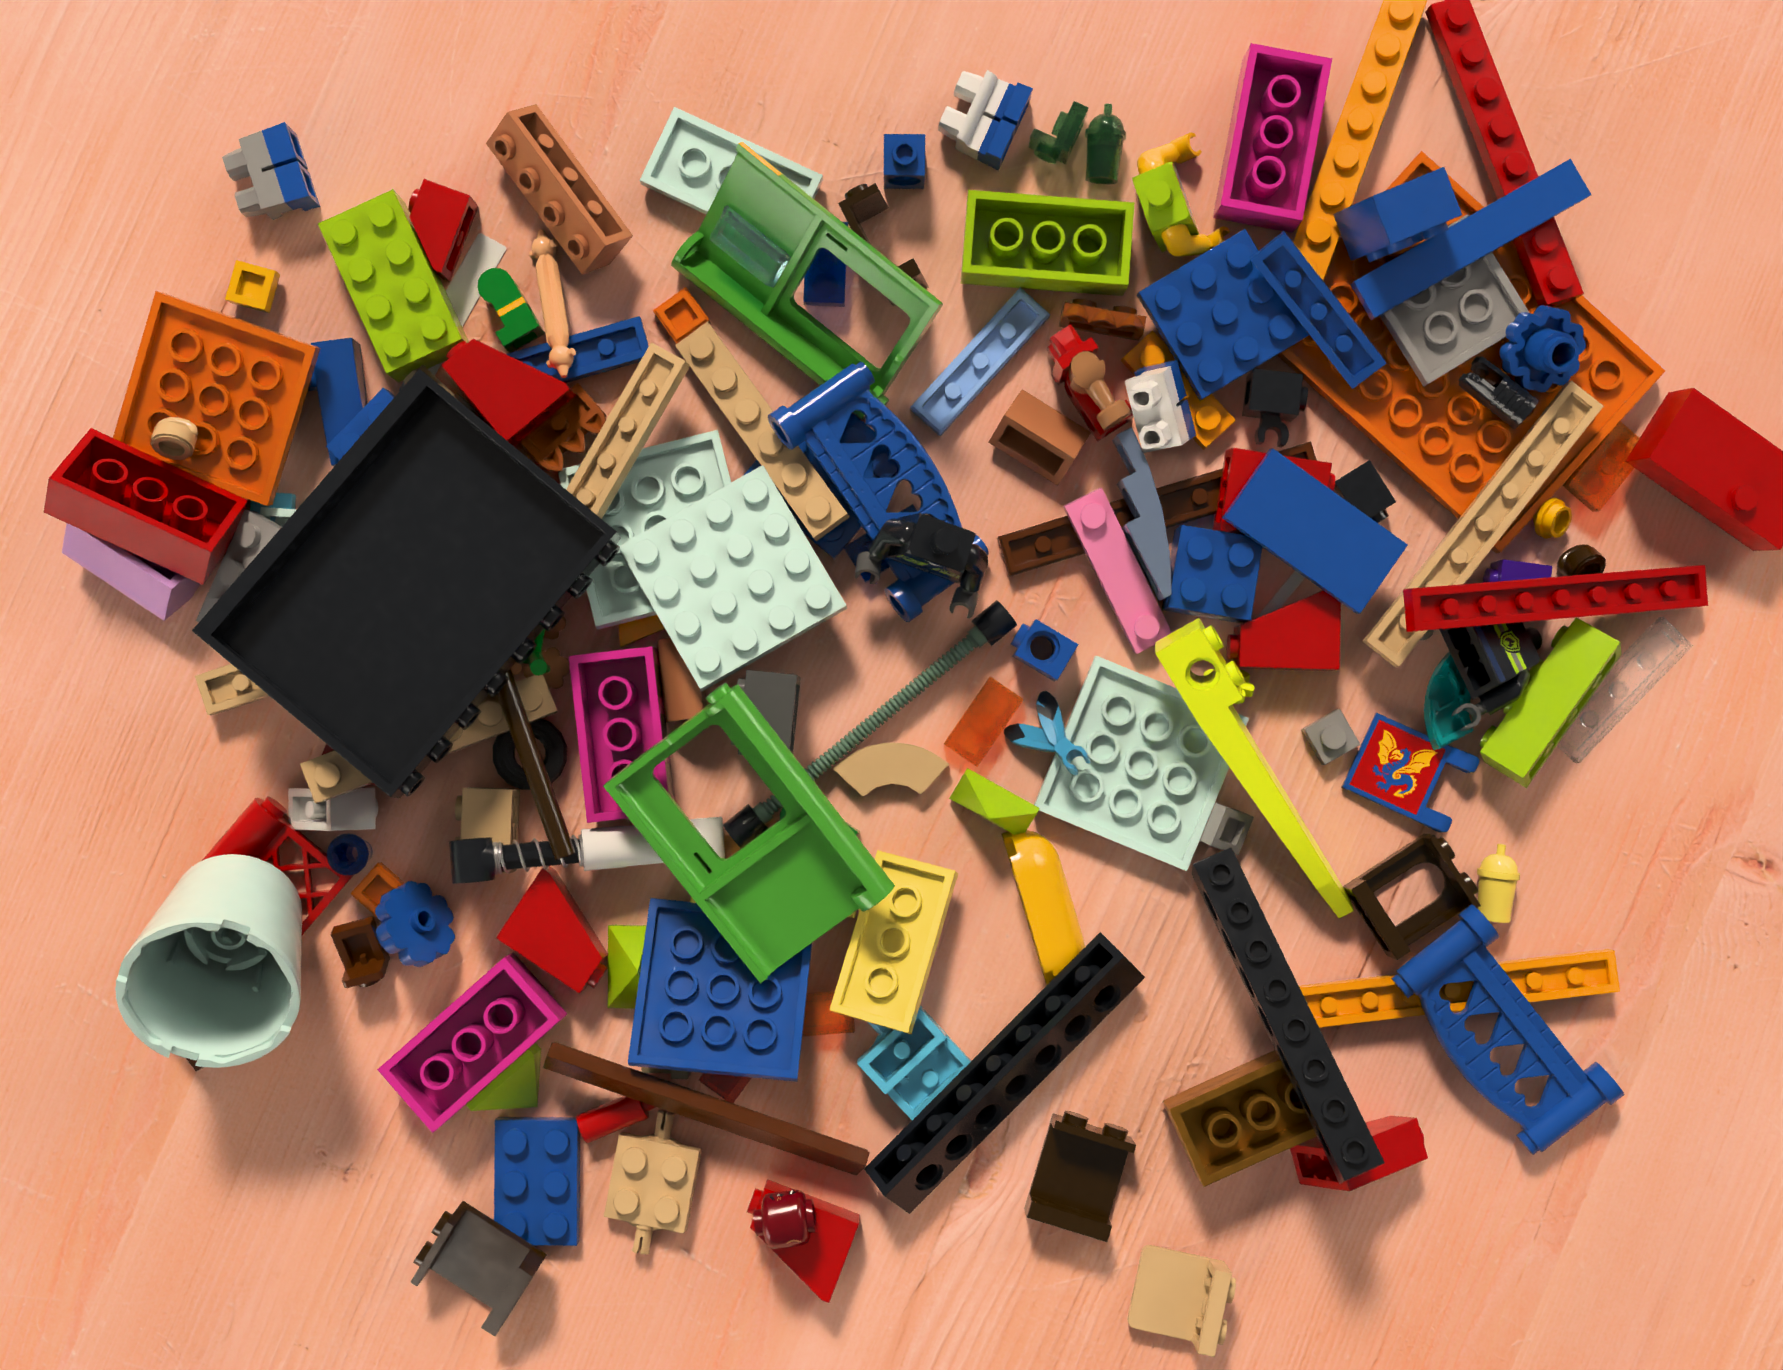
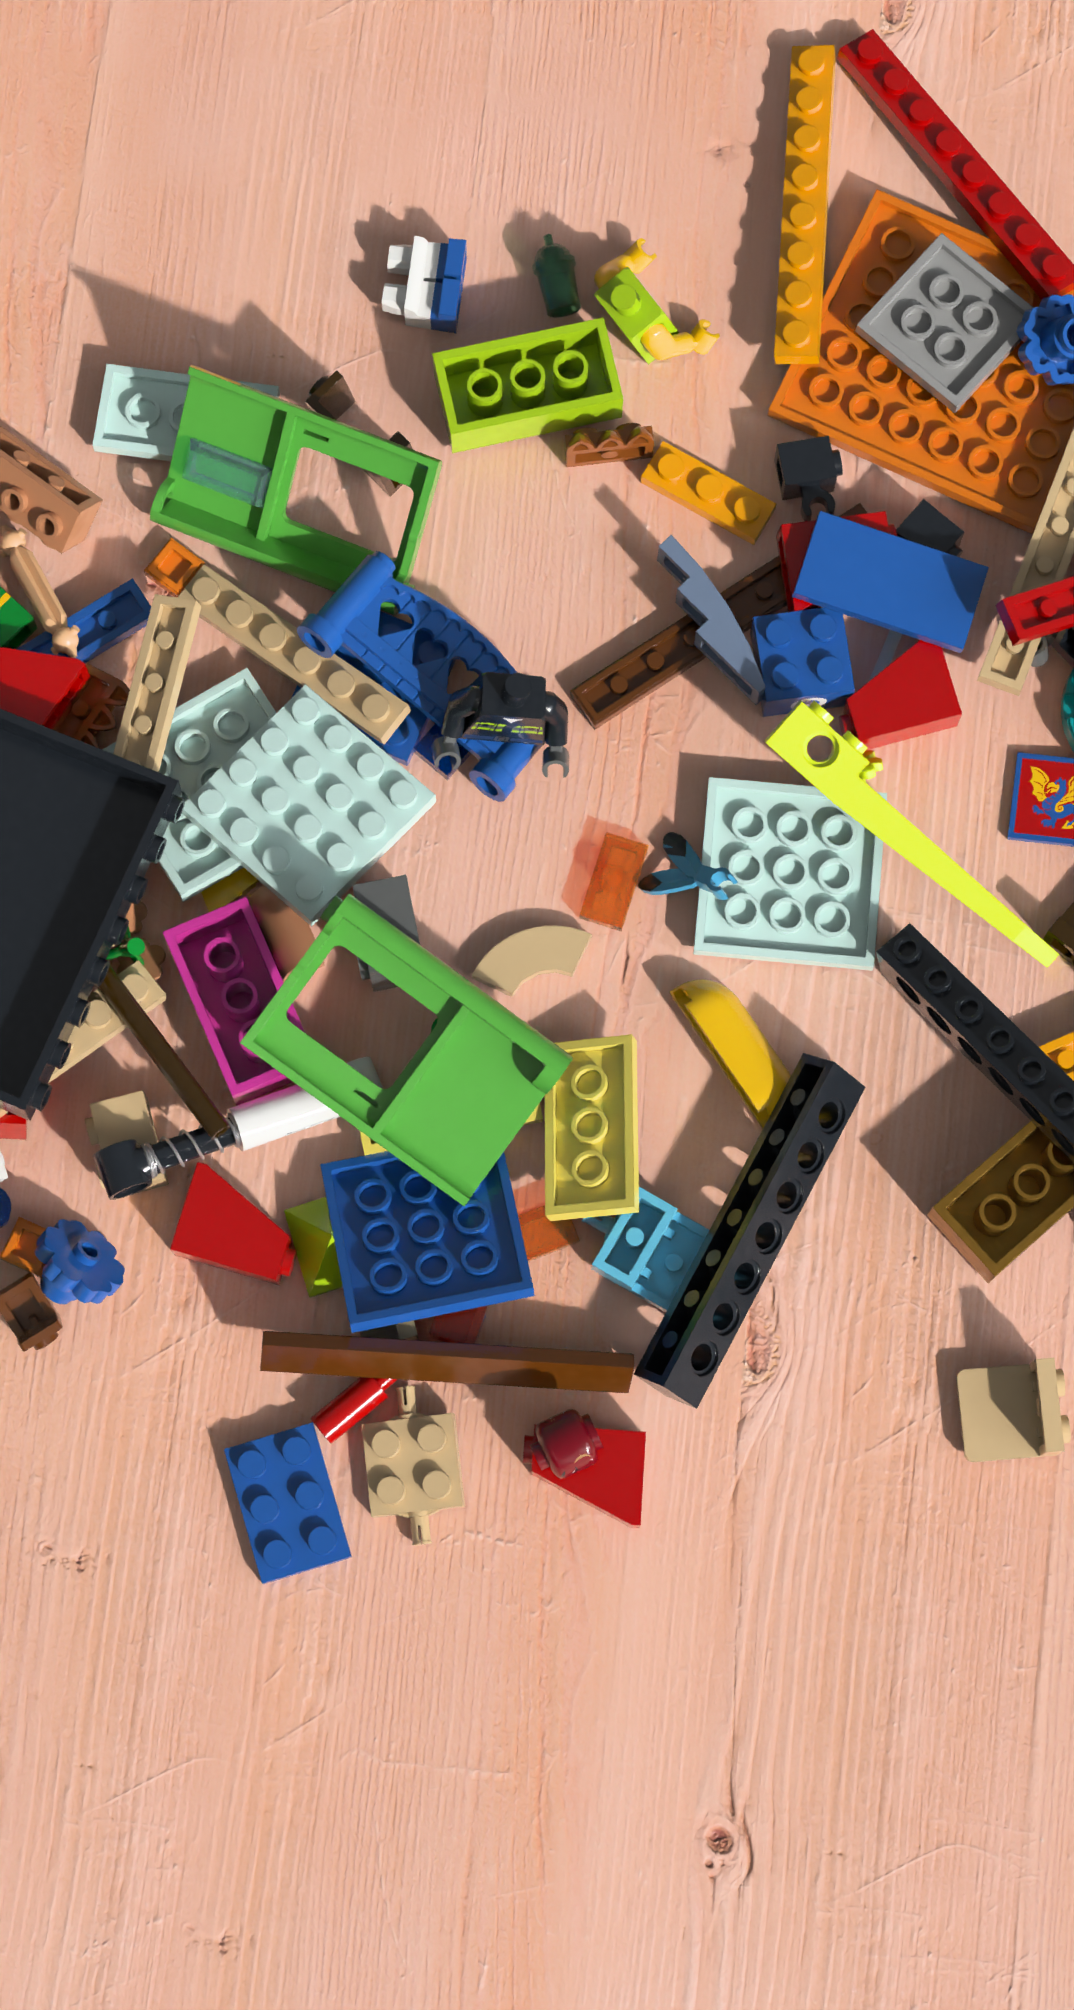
camera: 15 degrees left, 10 degrees down
(472, 1041) = (177, 1366): dark pink brick -> none
(480, 1260) = (252, 1602): dark brown panel -> none
(514, 1086) = (232, 1407): lime slope -> none
(554, 759) = (133, 1079): black tyre -> none
(825, 280) = (313, 486): clear blue plate -> none
(904, 161) = (358, 349): blue brick -> none
(980, 362) = (496, 524): light blue tile -> none
(988, 627) = (588, 784): sand green hose -> none
(994, 803) = (650, 959): lime slope -> none
(1039, 437) = (581, 579): nougat brick -> none
(1062, 649) = (661, 805): blue brick -> none
(1067, 131) = (510, 287): clear green bracket -> none
(1078, 1175) = (863, 1315): dark brown panel -> none
(1084, 383) = (604, 501): hips -> none
(1117, 570) = (703, 685): bright pink plate -> none
(1157, 408) = (691, 514): white hips -> none
(1220, 316) = (728, 402): blue plate -> none
(1226, 828) = (899, 908): light grey plate -> none
(1272, 138) = (722, 220): dark pink brick -> none
(1318, 309) = (822, 367): blue plate -> none
(1330, 736) = (978, 790): light grey plate -> none
(1398, 216) = (870, 252): blue brick -> none
(1470, 239) = (951, 256): blue tile -> none
(1498, 392) = (1030, 395): black hinge -> none

